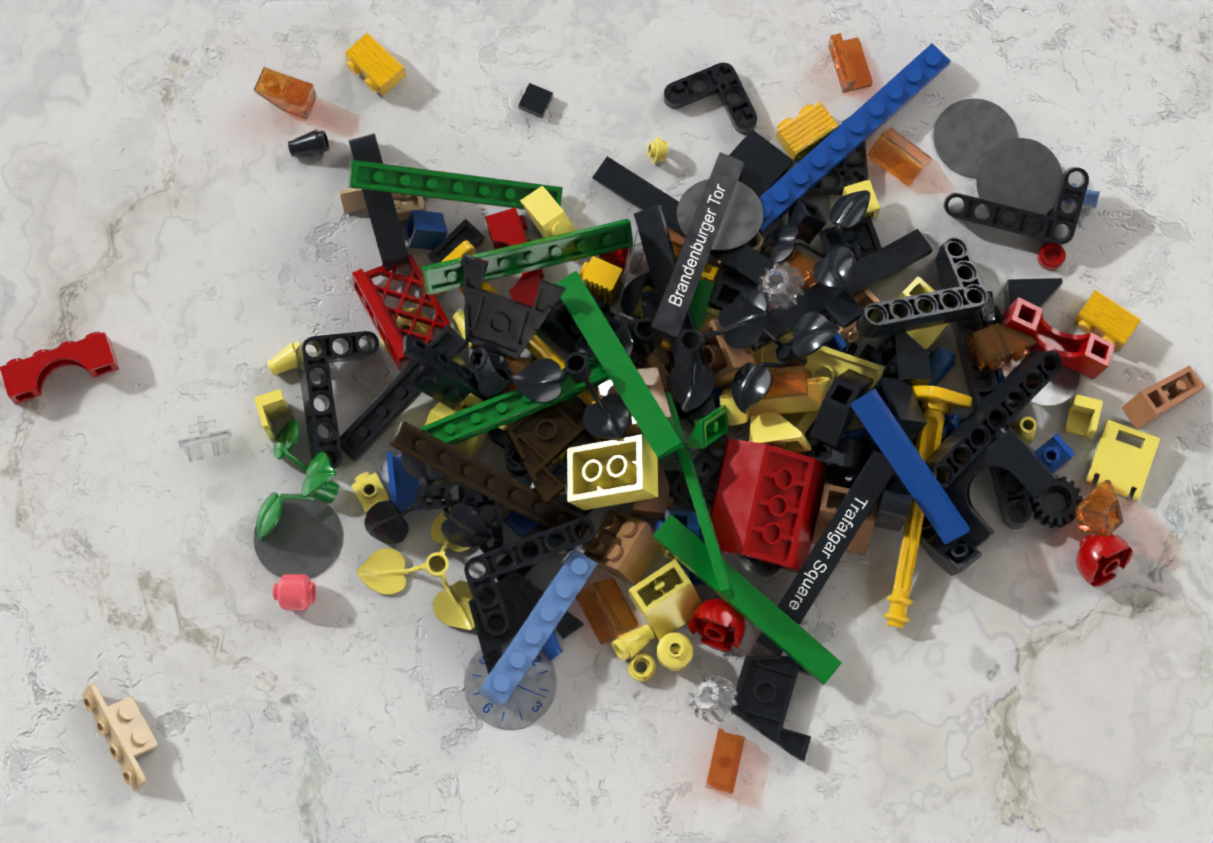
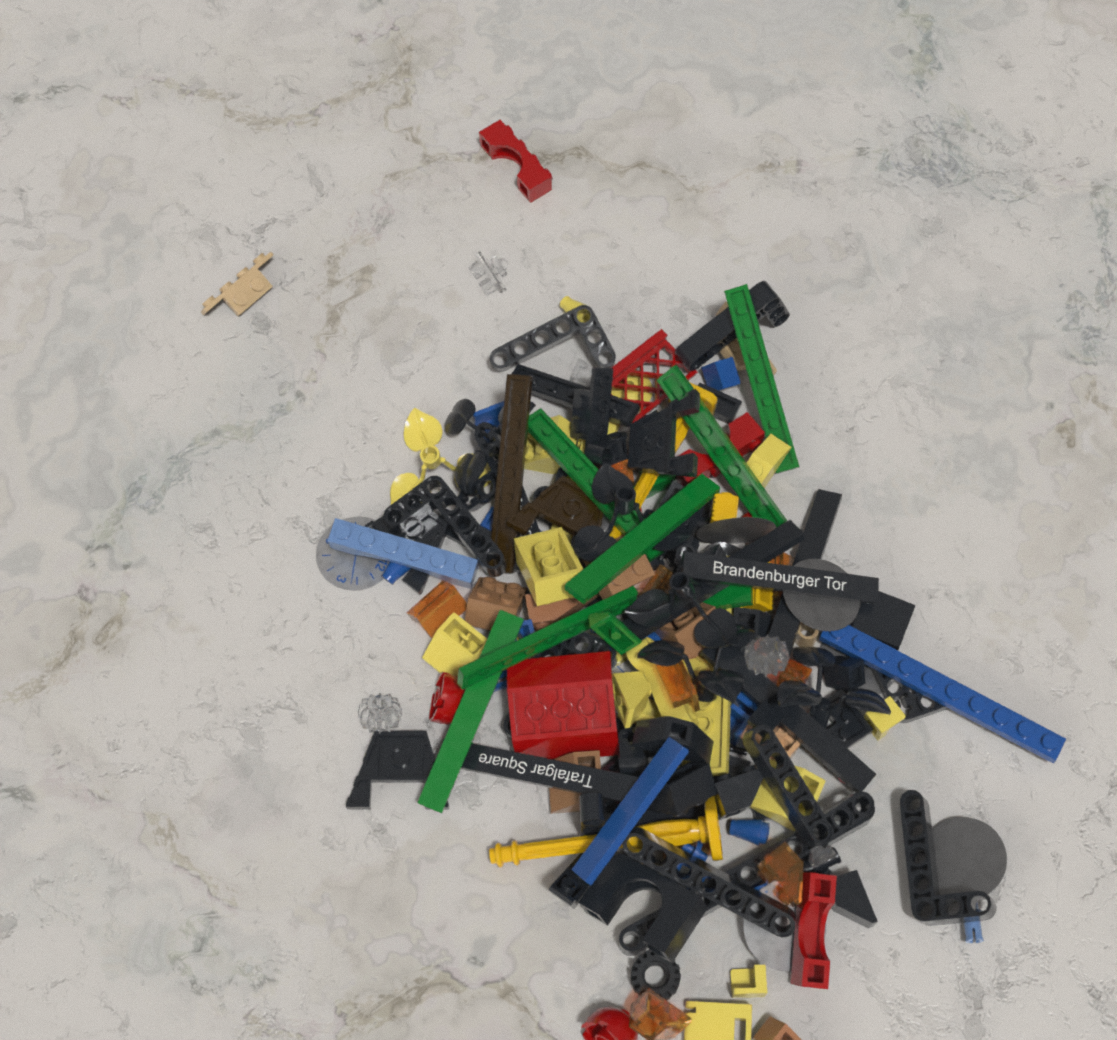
camera: 75 degrees right, 10 degrees down
(270, 407) = (523, 303): light yellow panel -> none
(286, 92) = (798, 240): clear orange slope -> none
(295, 592) = (384, 369): coral head -> none
(302, 540) = (433, 363): flat silver sticker -> none
(309, 144) = (763, 271): black cone -> none
(316, 483) = (475, 360): green plant -> none
(364, 482) = (477, 396): light yellow brick -> none
(374, 64) = (850, 297): yellow brick -> none
(535, 100) = (871, 427): black tile -> none
(632, 642) = (413, 634): light yellow cone -> none
(648, 661) = (392, 644): light yellow plate -> none
(658, 150) = (863, 533): light yellow plate -> none
(666, 651) = (414, 670): light yellow head -> none
(714, 85) = (945, 565): black beam -> none
(725, 761) = (329, 739): clear orange panel -> none
(805, 131) = (933, 650): yellow brick -> none
(849, 63) = (1016, 674): clear orange panel -> none
(899, 156) = (944, 742): clear orange panel -> none
(969, 132) = (997, 802): flat silver sticker -> none
(1029, 423) = (711, 933): light yellow cone -> none
(1051, 256) = (900, 912): red tile -> none
(1058, 449) = (701, 968): blue brick -> none
(1107, 320) = (853, 980): yellow brick -> none

